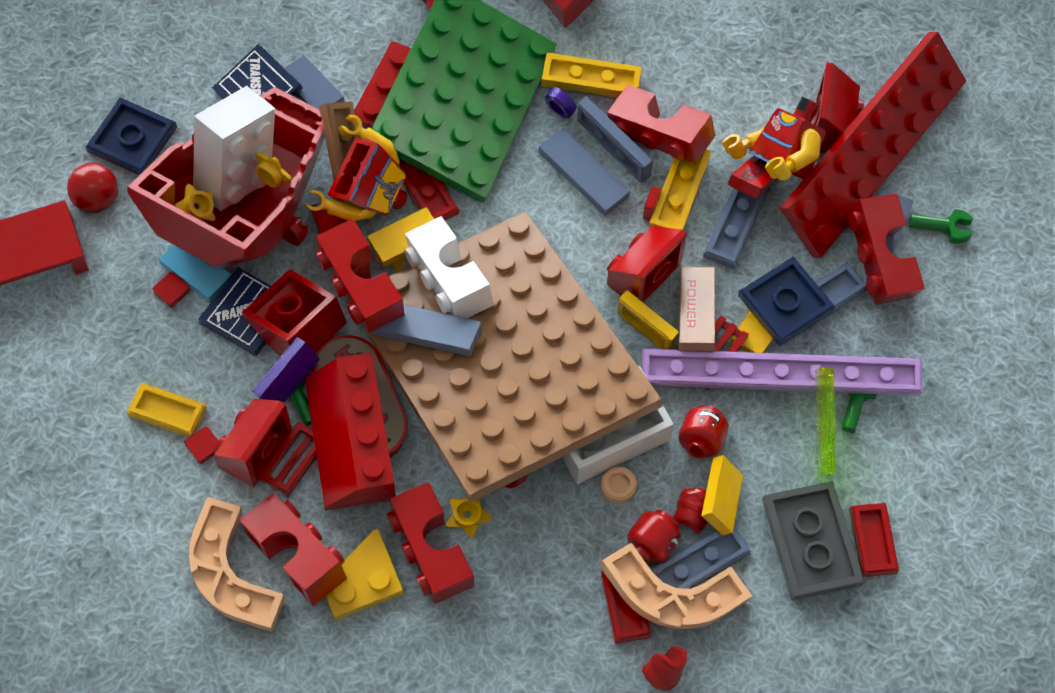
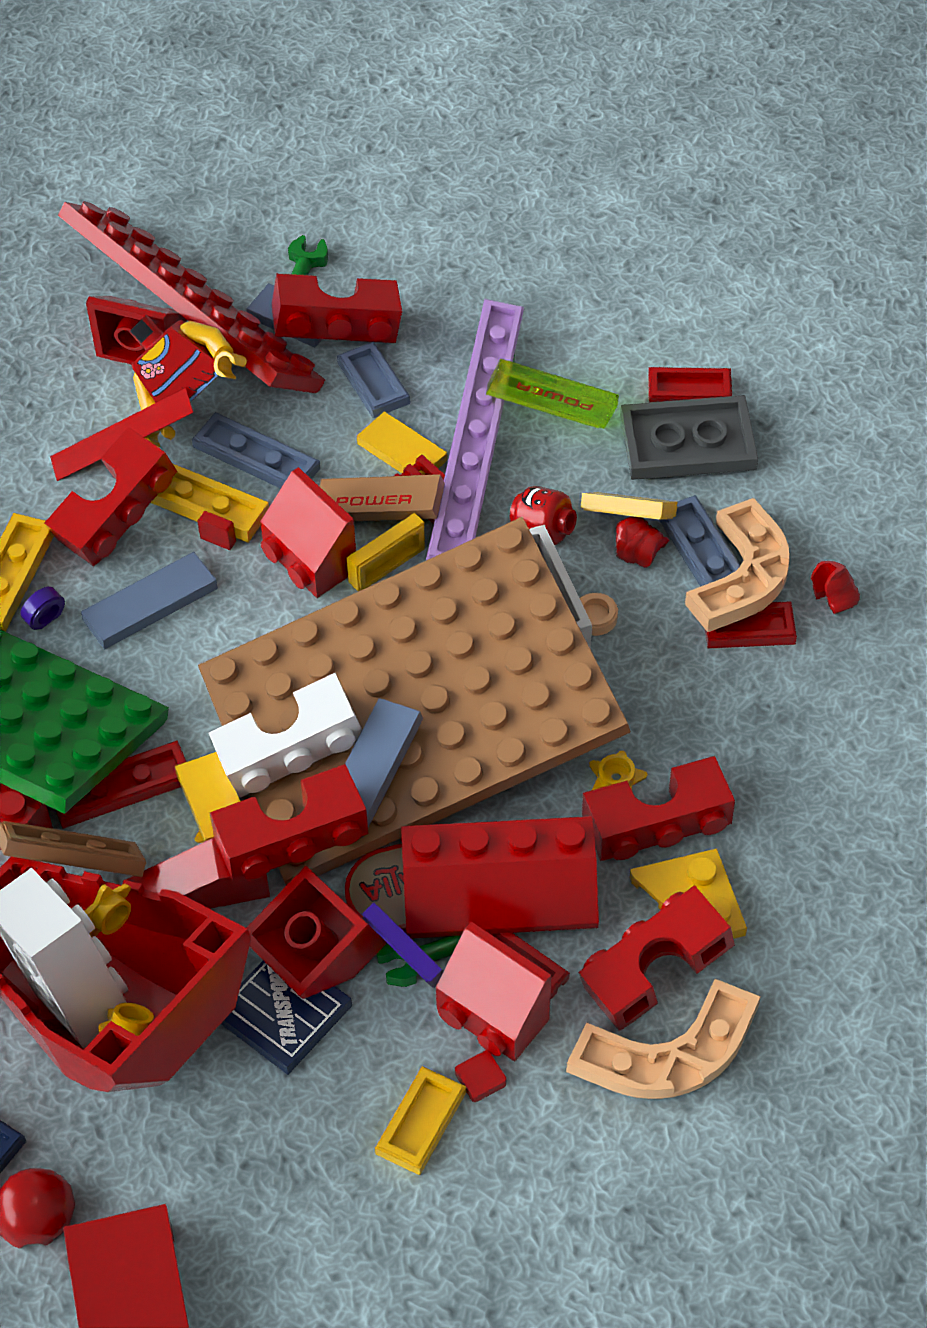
camera: 80 degrees left, 10 degrees down
(171, 289) = (228, 1107): red piece -> none
(196, 273) = (205, 1073): medium azure tile -> none
(367, 179) = (122, 816): torso -> none
(614, 140) = (115, 556): sand blue tile -> none
(655, 536) = (668, 577): red head -> none
(728, 122) = (143, 422): none -> red sticker
(752, 178) = (211, 416): red tile -> none
(786, 301) = (383, 414): dark blue tile -> none

